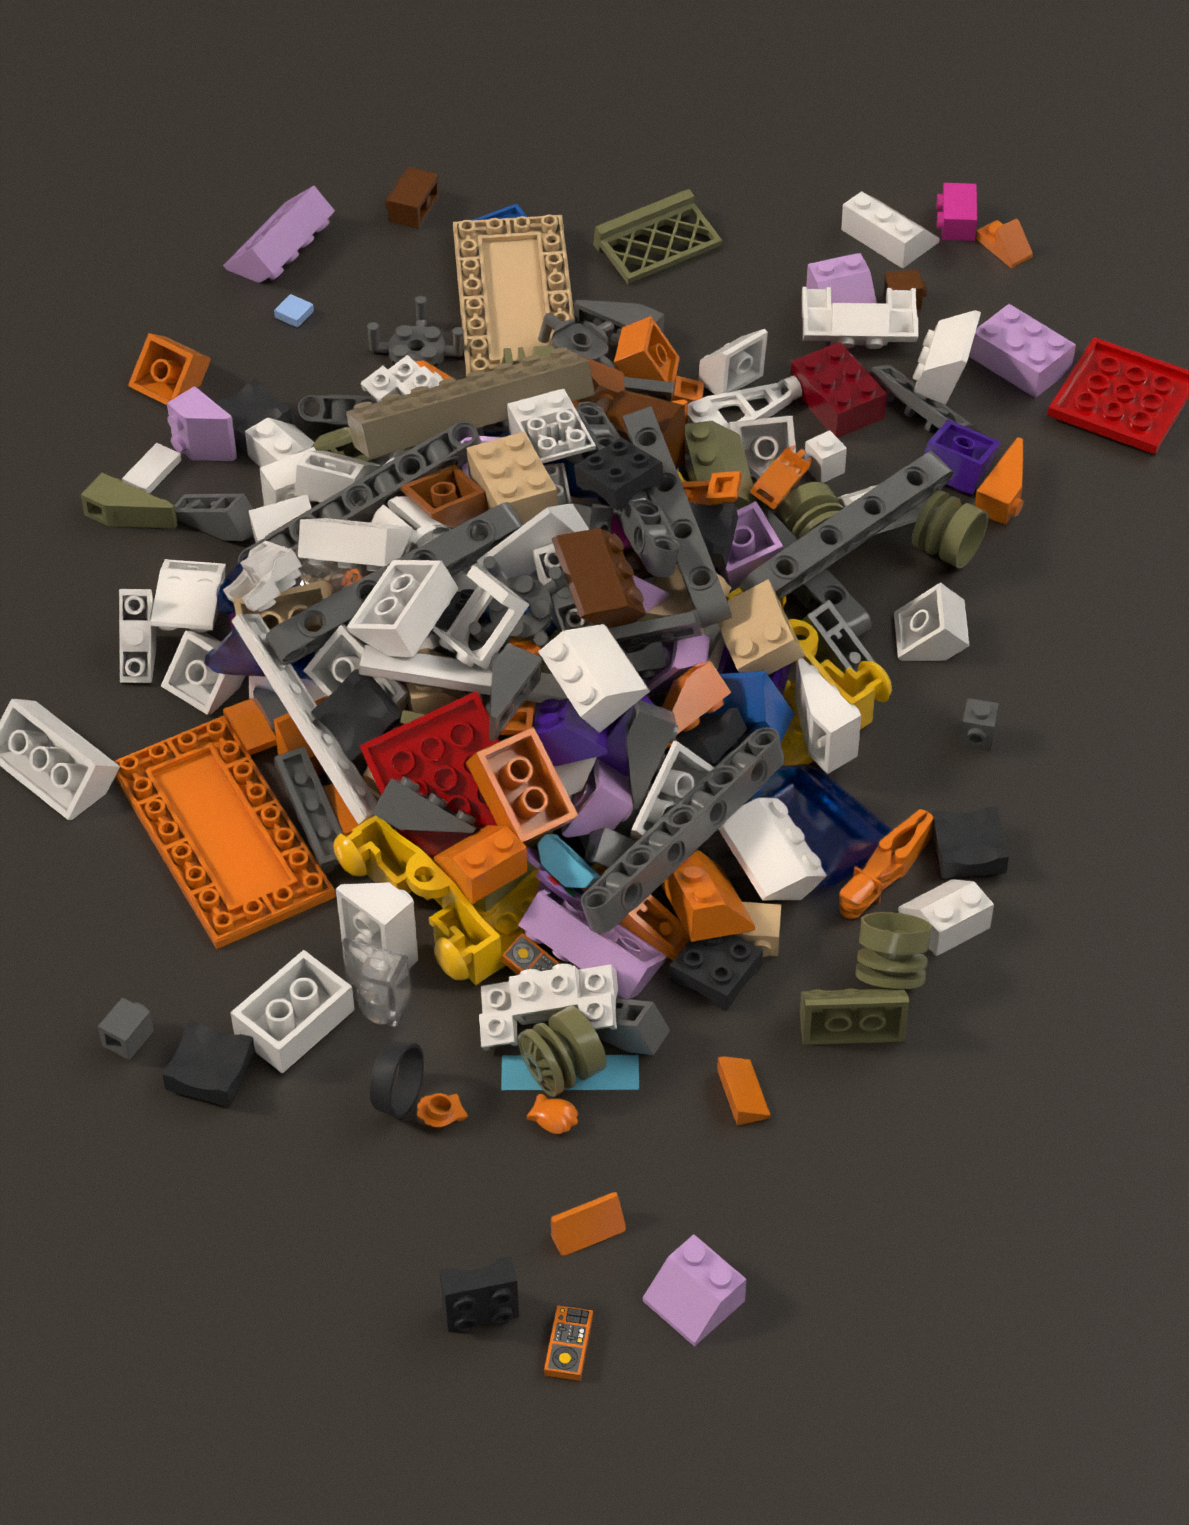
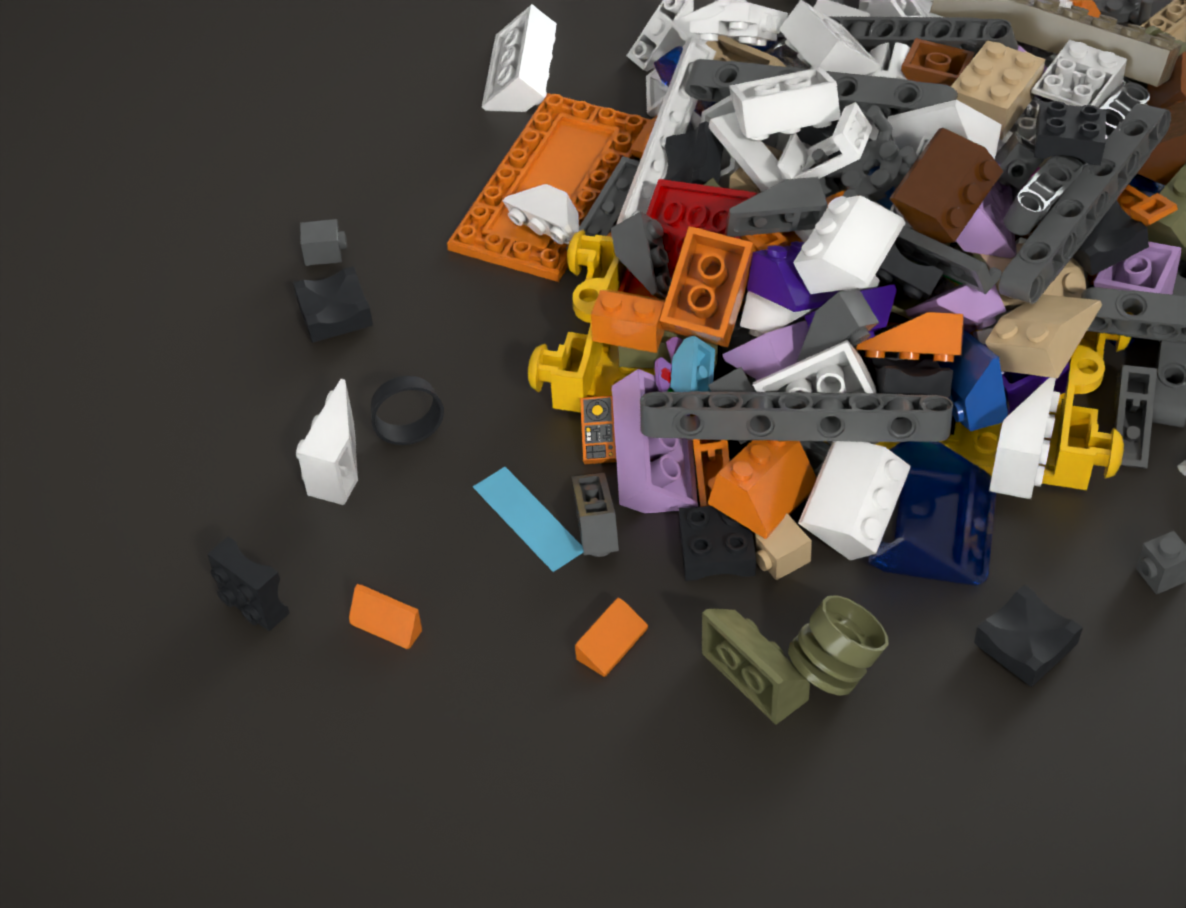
camera: 55 degrees right, 0 degrees up
(275, 849) = (545, 212): none -> white slope
(293, 1010) = (417, 316): white brick -> none
(377, 980) = (483, 344): clear slope -> none
(378, 917) = (525, 308): white slope -> none
(388, 1151) = (329, 450): none -> white slope
(440, 1110) = (414, 460): orange animal -> none
(540, 994) = (568, 448): white bracket -> none
(553, 1114) = (473, 530): orange animal -> none
(562, 1051) = (523, 491): olive wheel -> none
(568, 1343) = (265, 677): tile -> none
(695, 1290) = (379, 729): lavender slope -> none
(887, 864) = (950, 591): orange arm -> none
(954, 911) = (934, 671): white slope -> none

